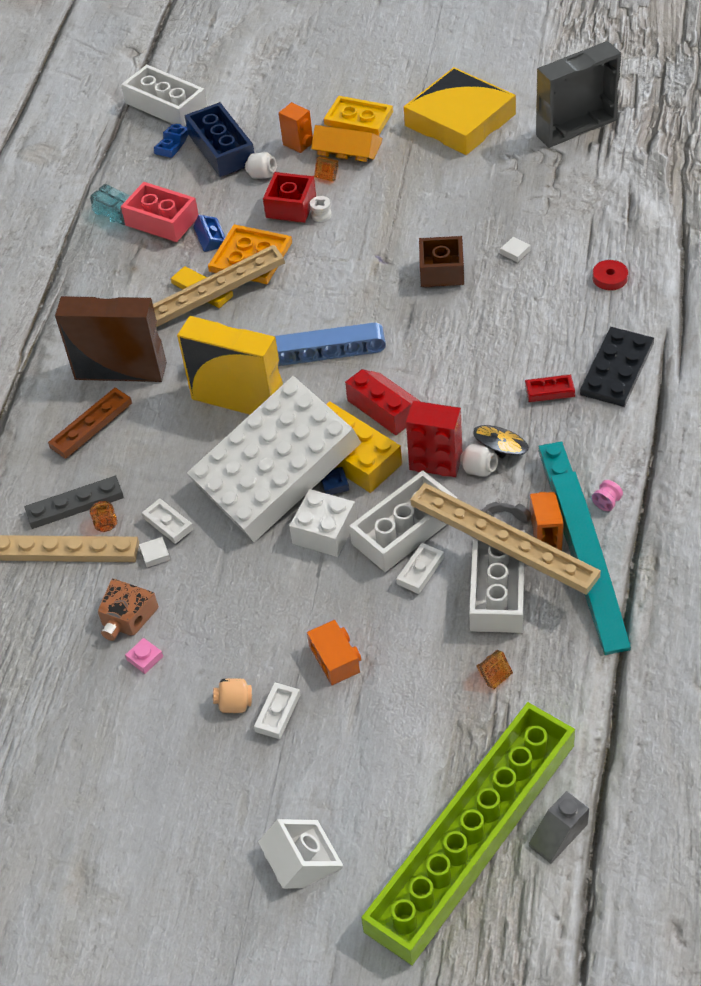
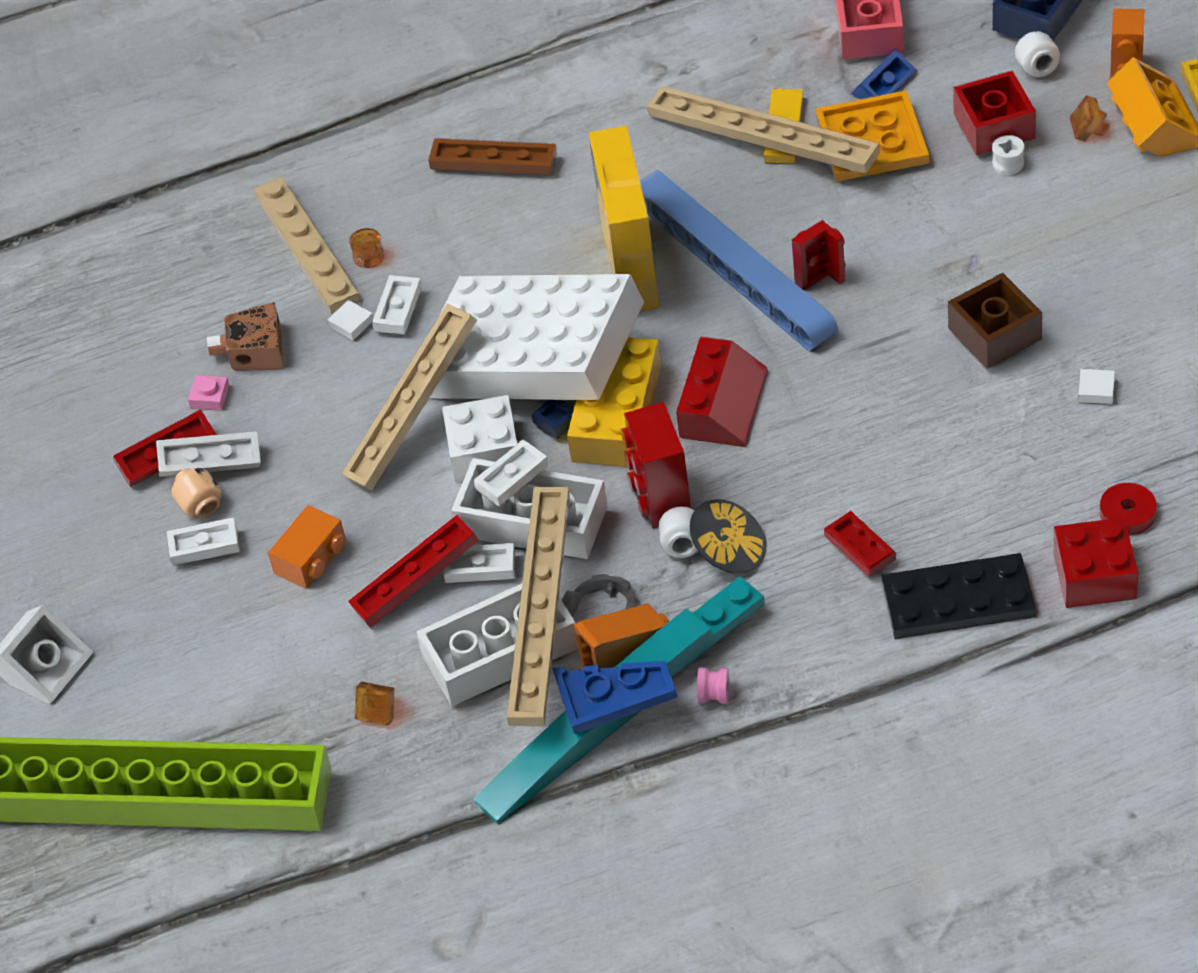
camera: 60 degrees right, 0 degrees up
(73, 502) = (375, 213): dark grey plate -> none
(111, 338) = (587, 77): reddish brown tile -> none
(176, 698) = (141, 459): none -> red plate
(206, 674) = (209, 453): none -> white plate
(270, 536) = (409, 397): none -> tan plate
(329, 304) = (818, 254): none -> red bracket
(385, 507) = (511, 472): none -> white plate
(406, 601) = (413, 571): none -> red plate
(559, 827) = (200, 865): flat silver slope -> none
(594, 533) = (607, 694): none -> blue wing
(643, 299) = (1095, 562): none -> red brick

